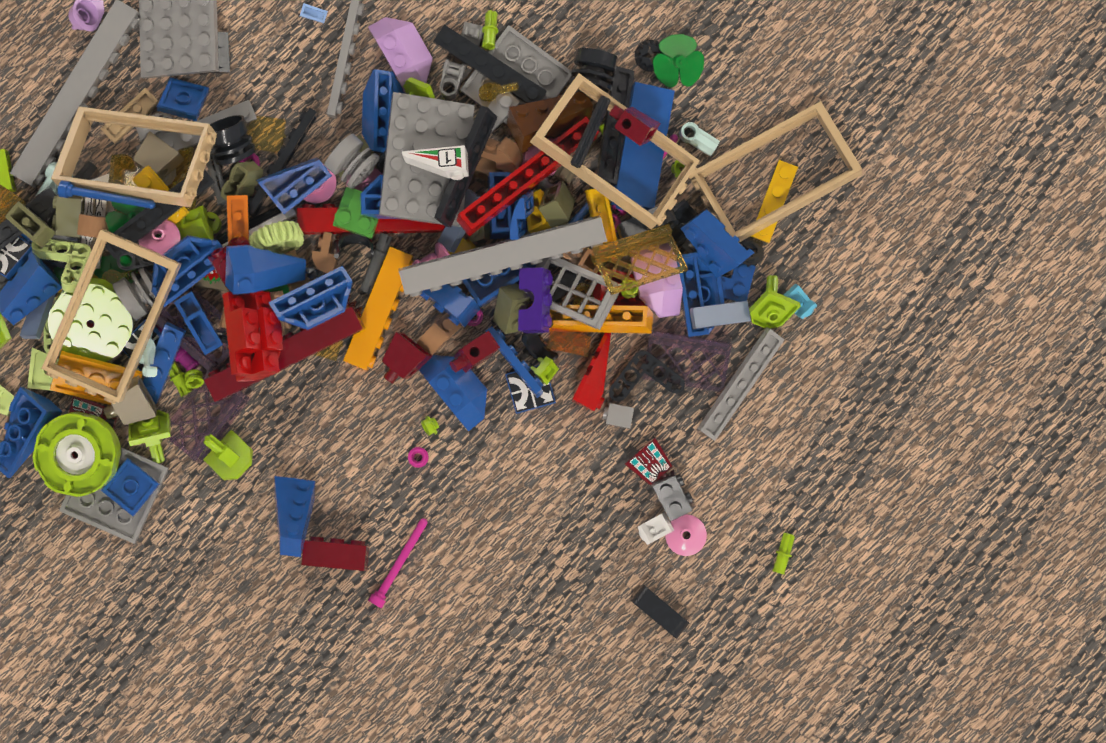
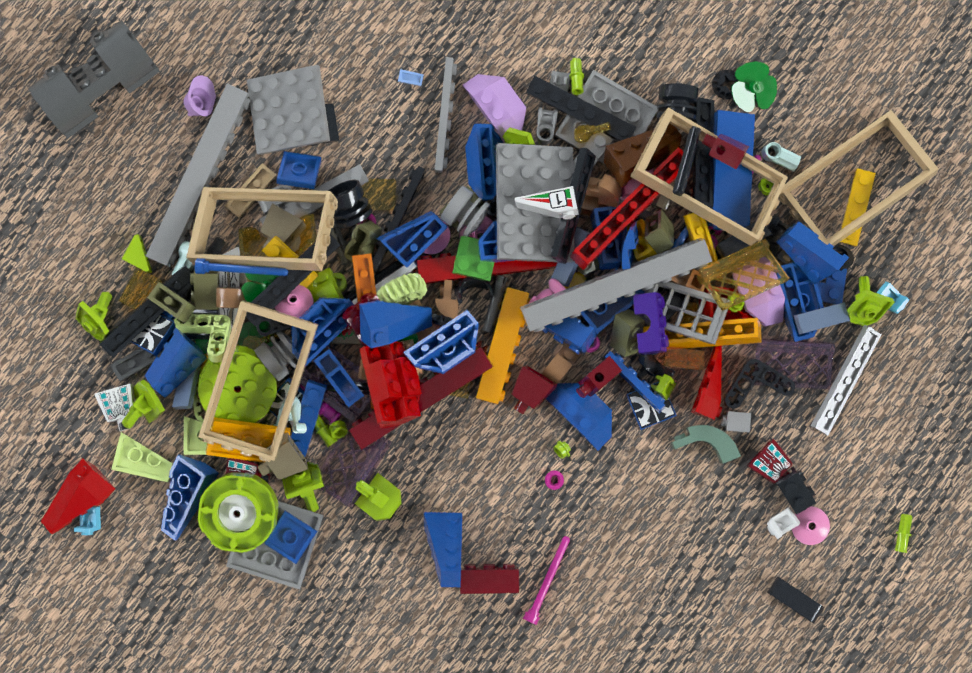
camera: 10 degrees left, 0 degrees up
(593, 429) = (719, 440): none -> sand green arch

